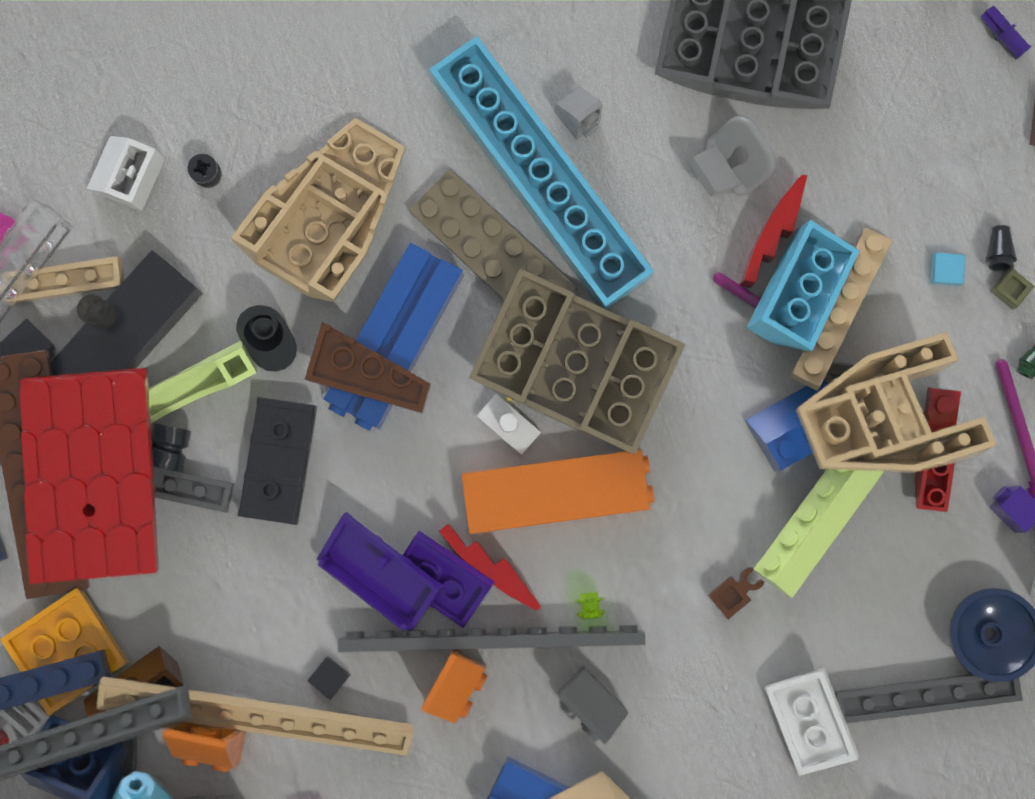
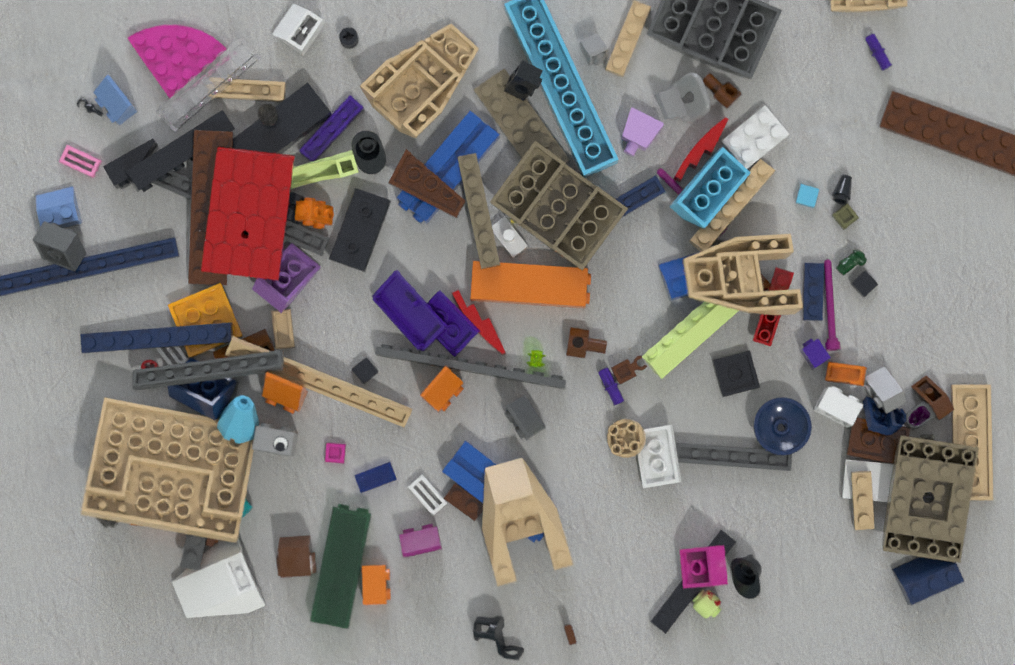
camera: 10 degrees right, 0 degrees up
(185, 553) = (295, 274): none -> medium lavender slope
(189, 638) = (283, 329): none -> tan tile
(198, 450) = (314, 213): none -> orange brick
(205, 314) = (331, 129): none -> dark purple tile
(454, 395) = (478, 211): none -> dark tan plate
(483, 179) = (523, 81): none -> black brick
(626, 87) = (628, 38): none -> tan plate
(666, 566) = (589, 344): none -> reddish brown piece
(675, 222) = (640, 131): none -> lavender torso
(698, 317) = (641, 195): none -> dark blue plate
(714, 624) = (611, 386): none -> dark purple axle
(756, 702) = (626, 438): none -> tan tile
(790, 140) = (724, 94): none -> reddish brown piece
(851, 195) = (755, 137): none -> white plate
(901, 564) = (736, 373): none -> black tile
(989, 402) = (813, 291): none -> dark blue plate

